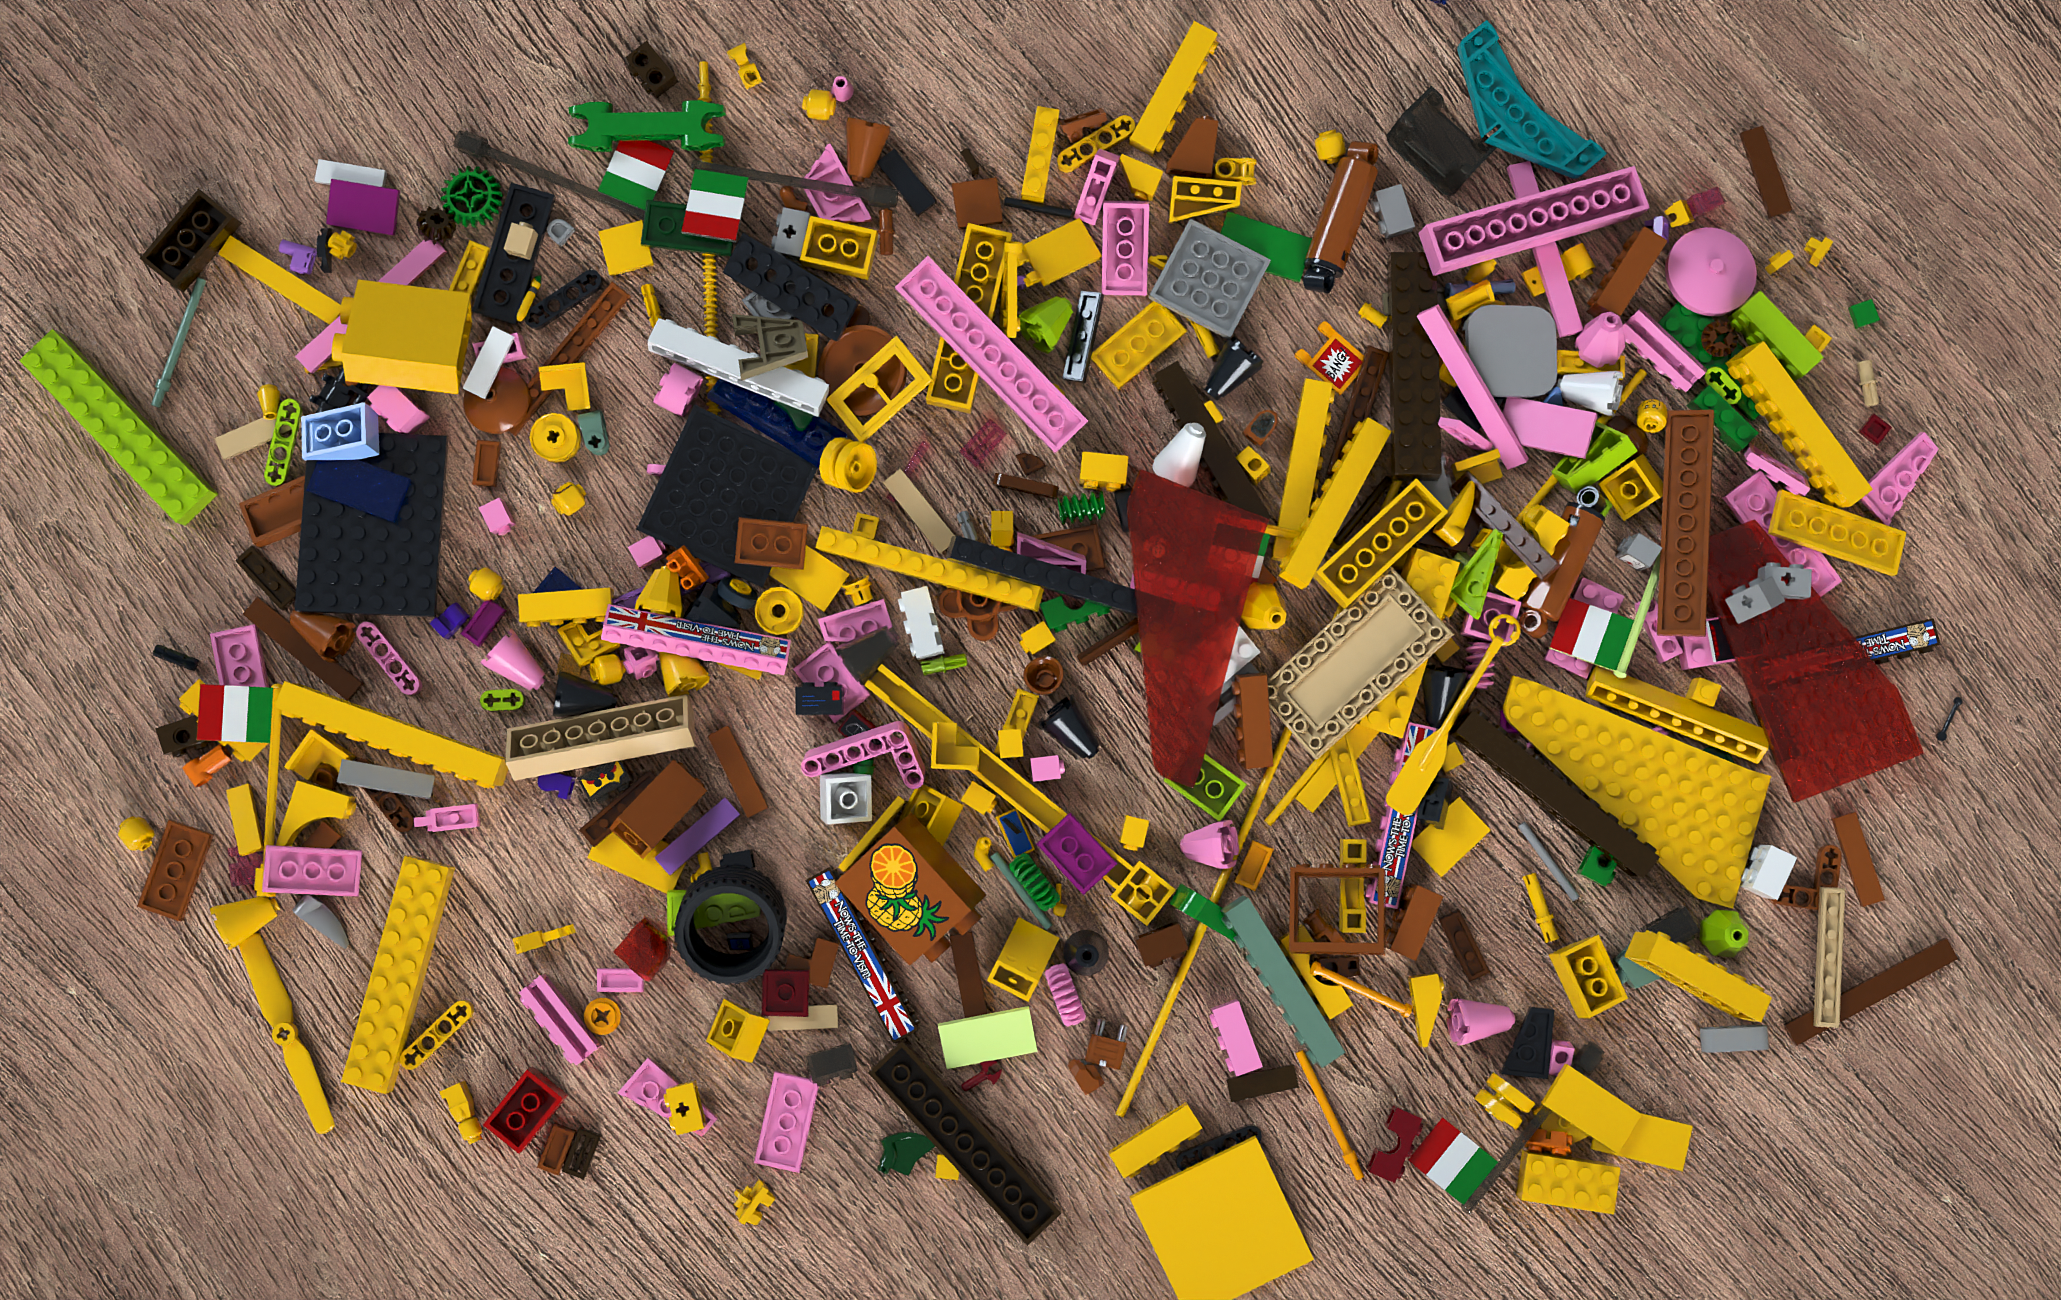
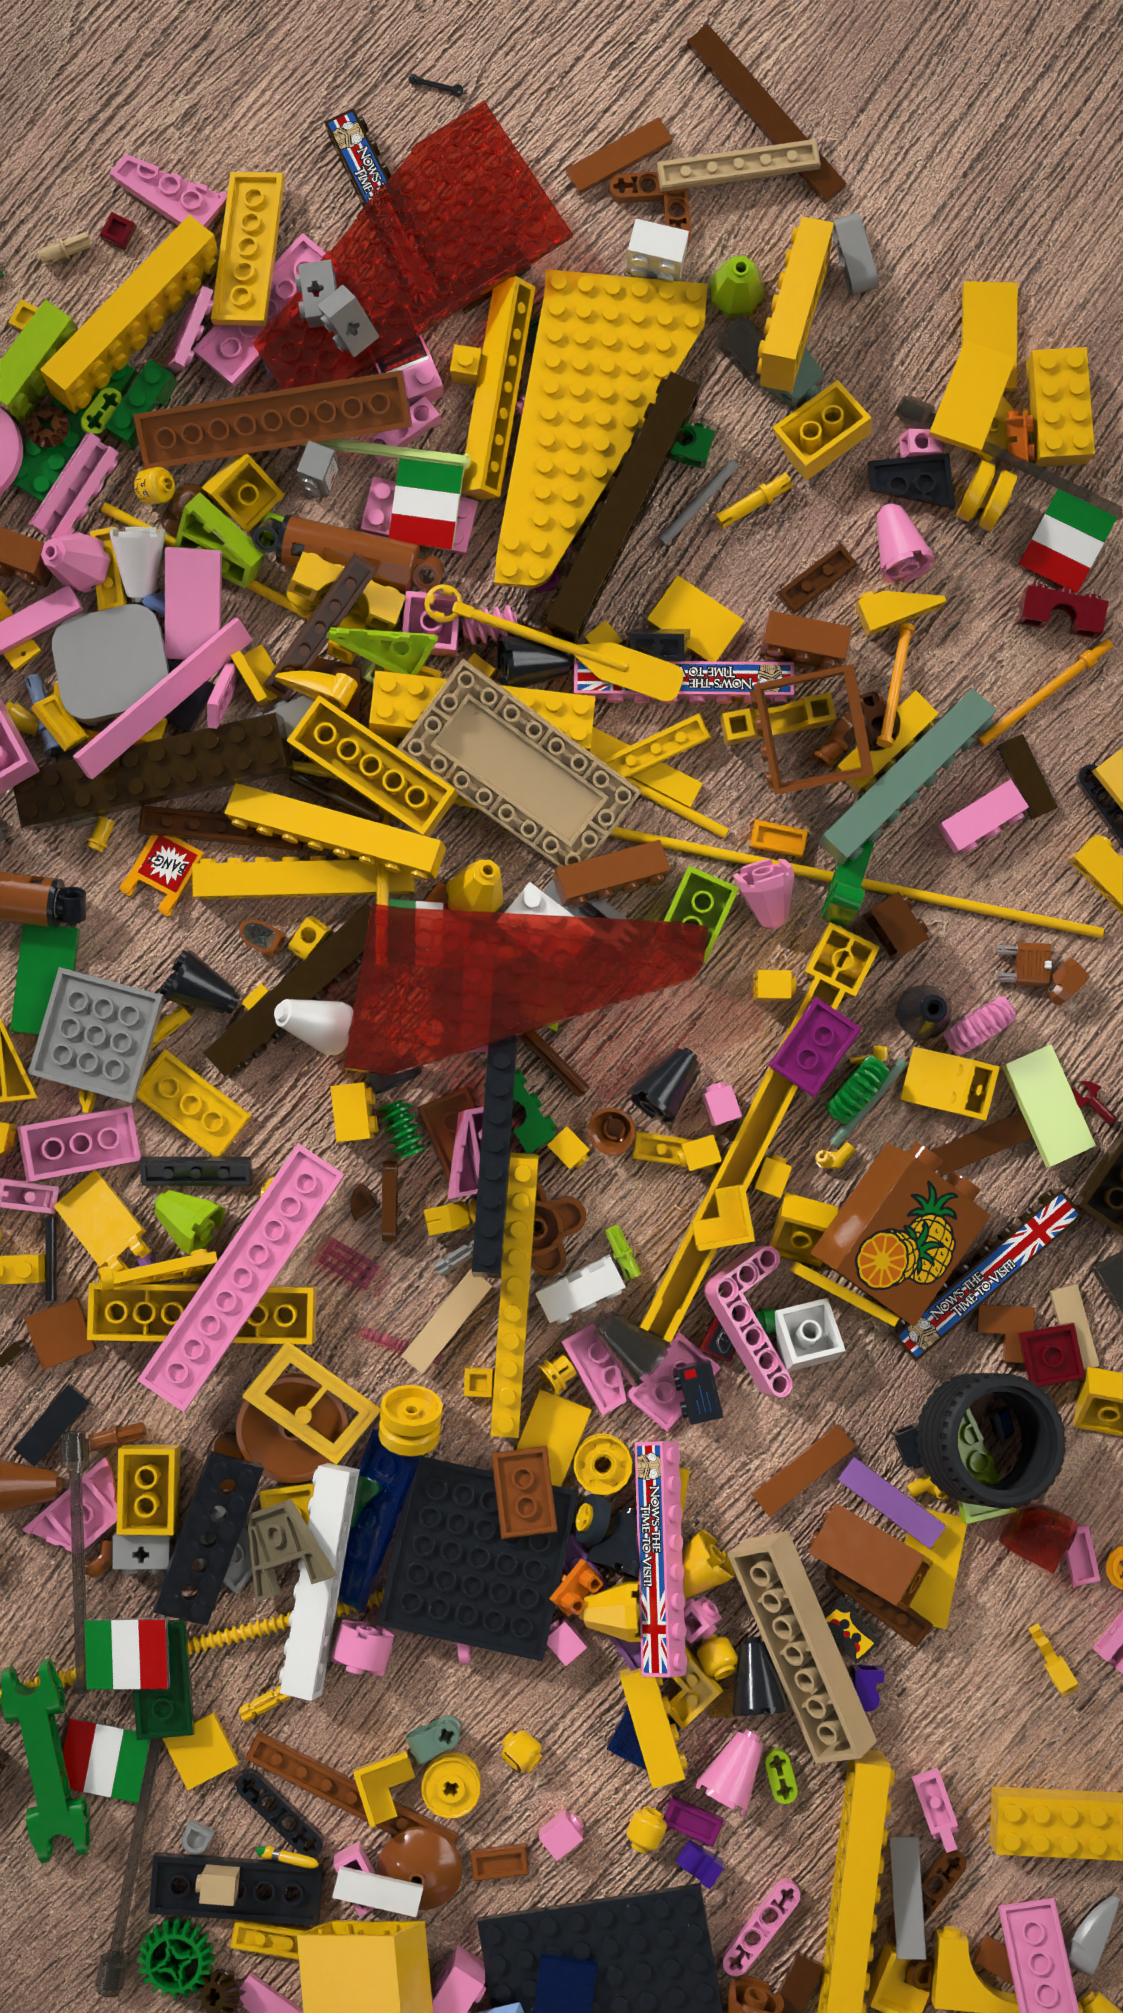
camera: 100 degrees left, 0 degrees up
(1015, 833) = (803, 1125): blue slope -> none

